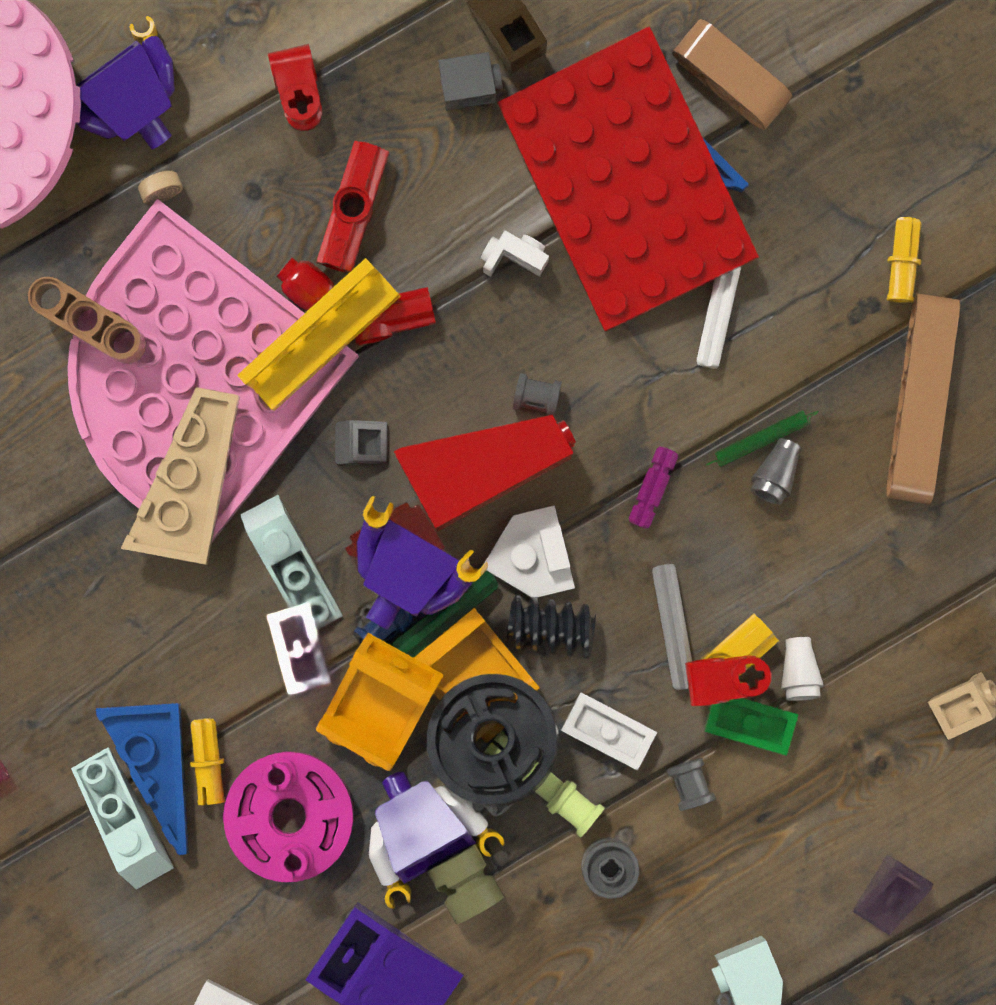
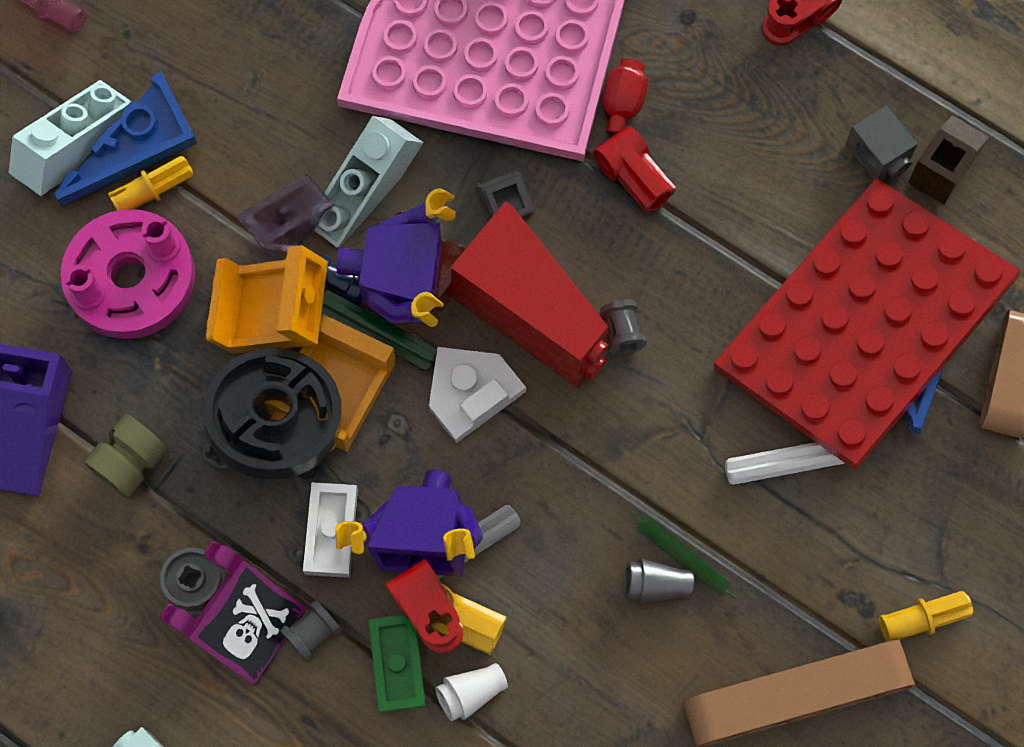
camera: 70 degrees right, 15 degrees down
(186, 493) = (378, 62): tan wing -> none
(319, 335) = (583, 106): yellow fence -> none
(359, 181) = (741, 95): red piece -> none
(420, 831) = (158, 390): torso -> none
(523, 251) = (746, 238): white bracket -> none
(551, 626) = (405, 431): black piece -> none
(561, 796) = (246, 516): yellowish green pin -> none
(648, 655) = (417, 526): none -> dark purple torso
(653, 487) = (586, 472): magenta axle -> none
(660, 838) = (240, 619): none -> flag

